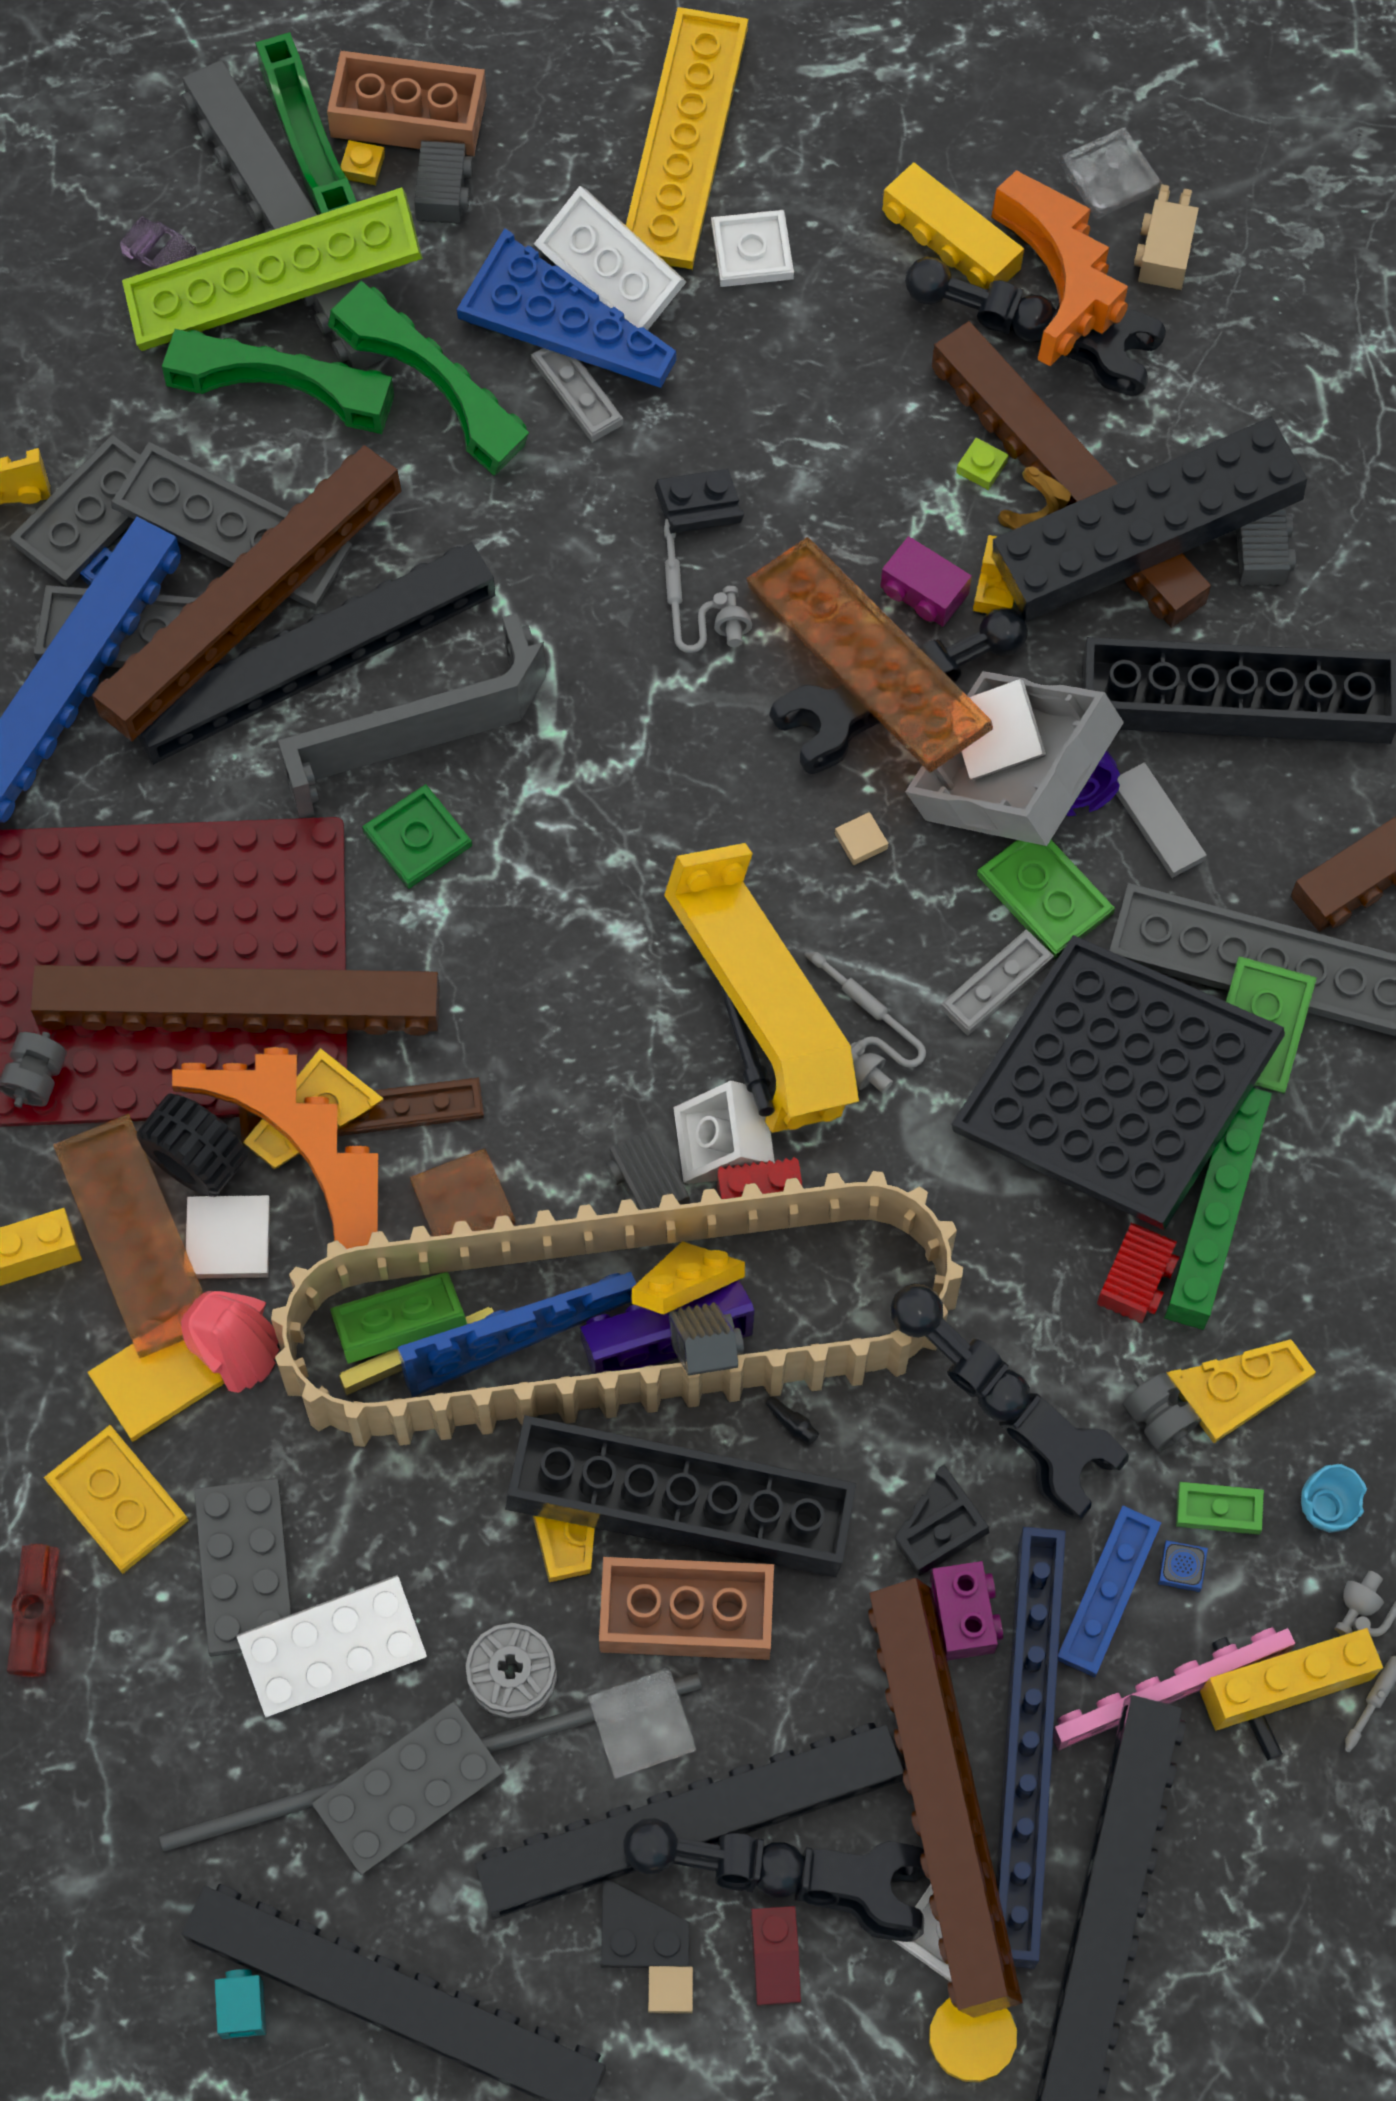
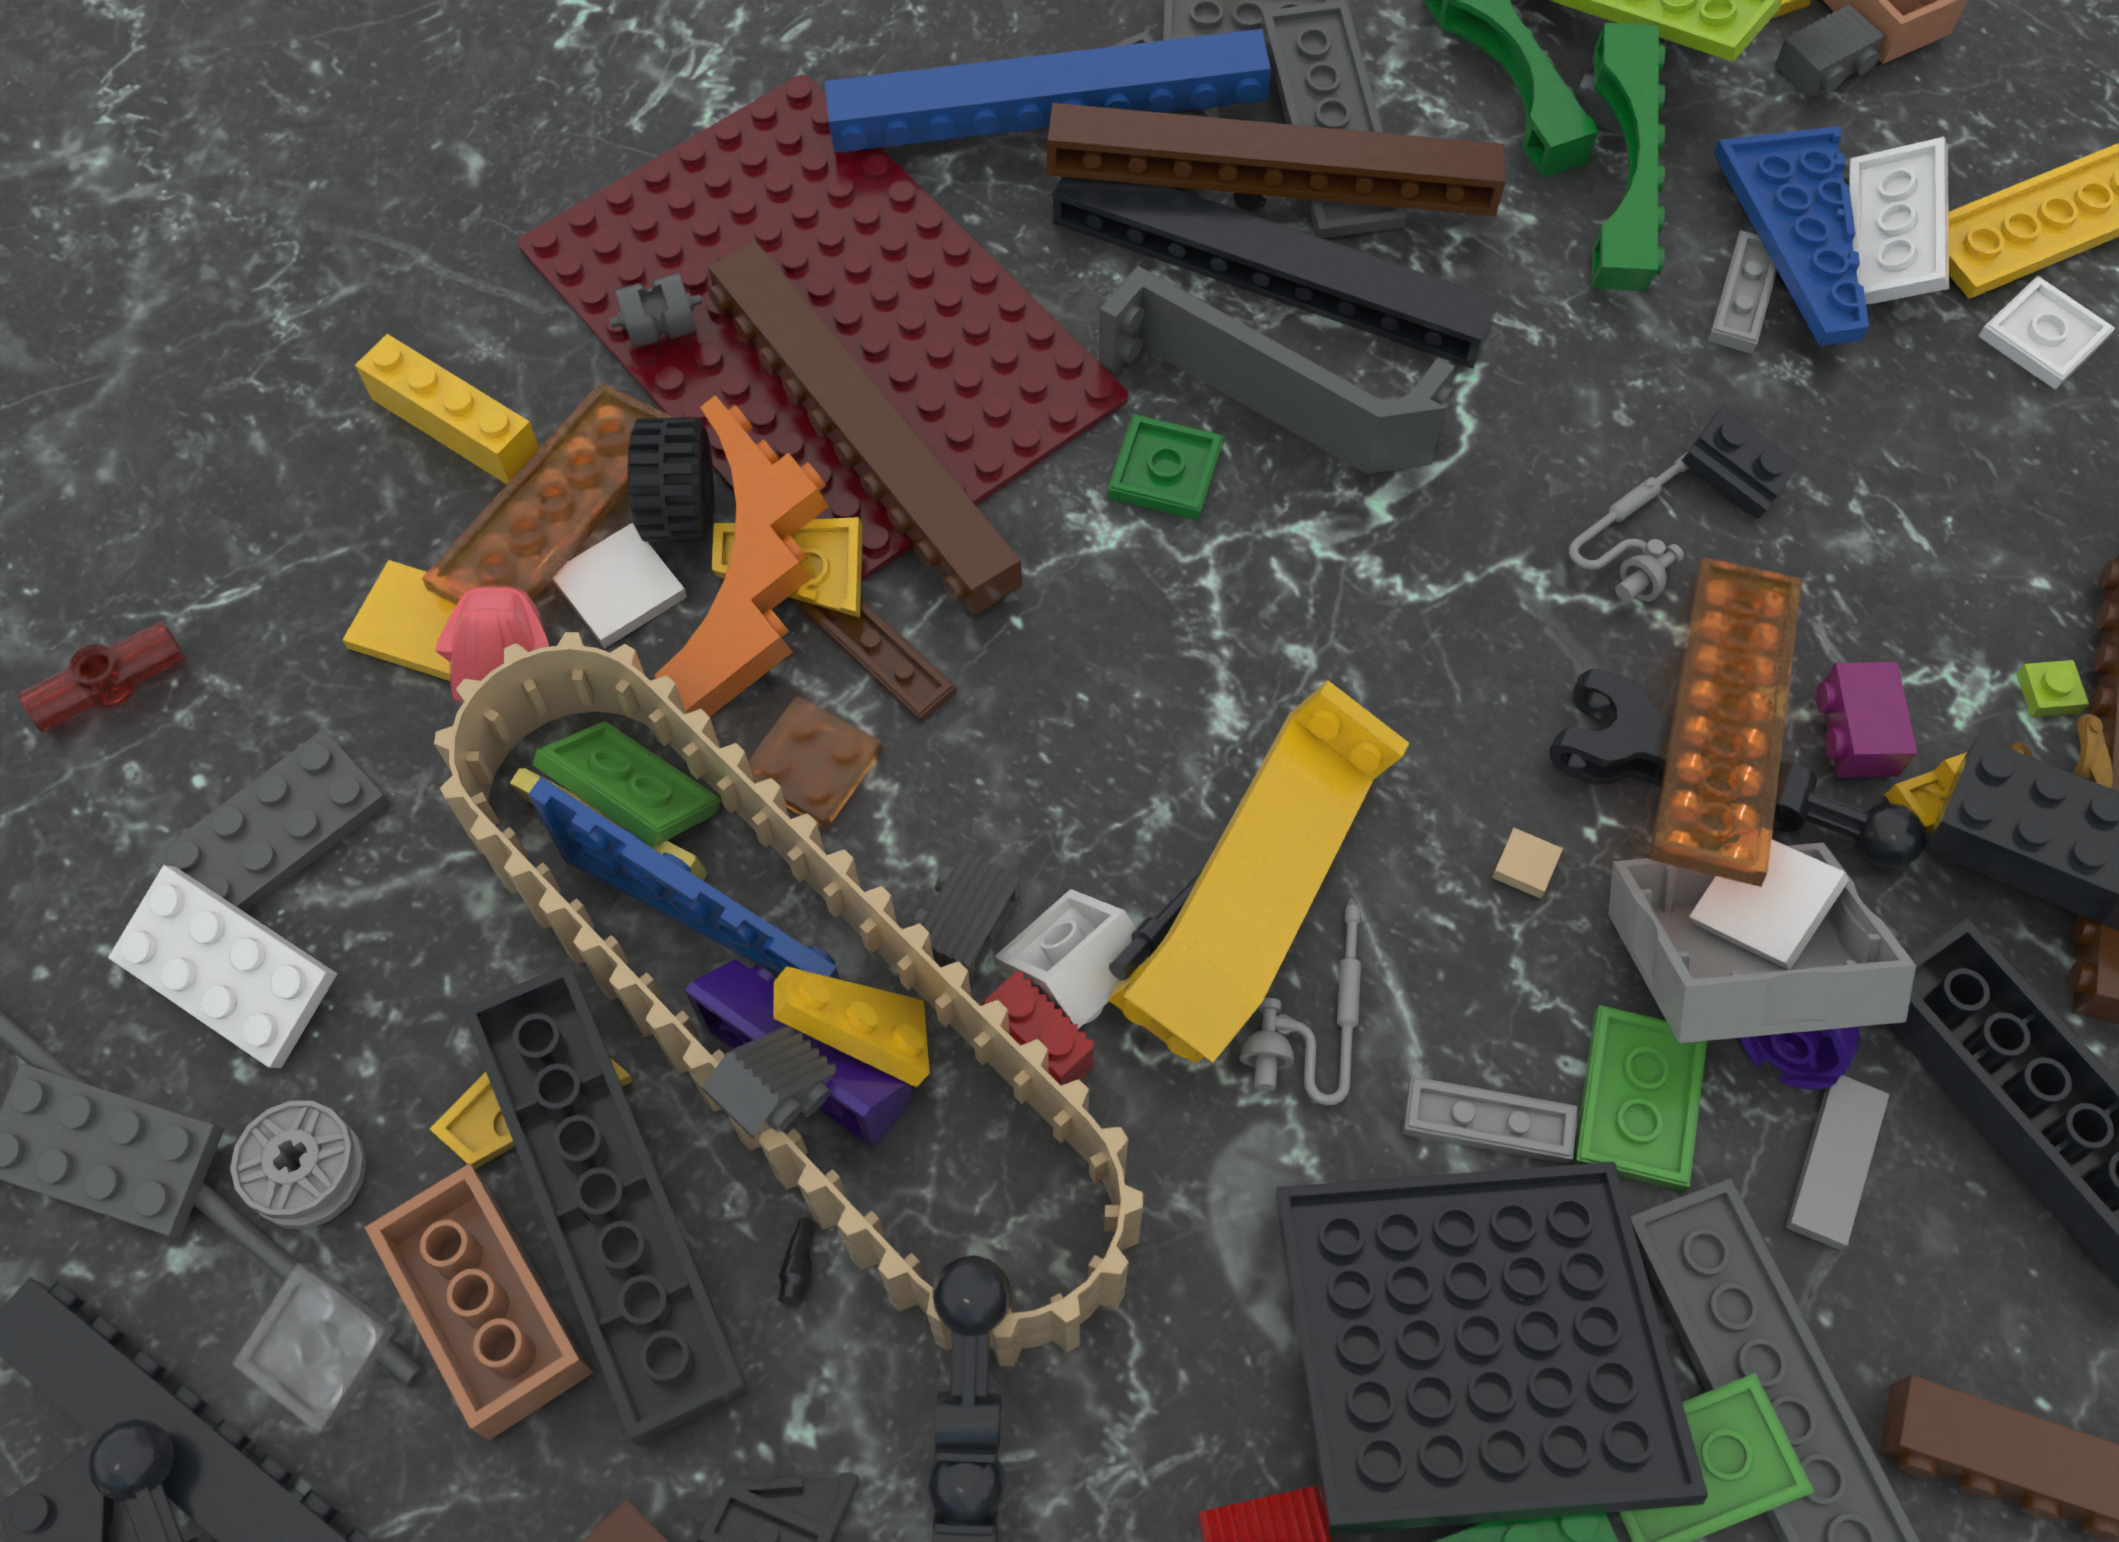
camera: 55 degrees right, 5 degrees down
(116, 1499) = (274, 673): yellow tile -> none

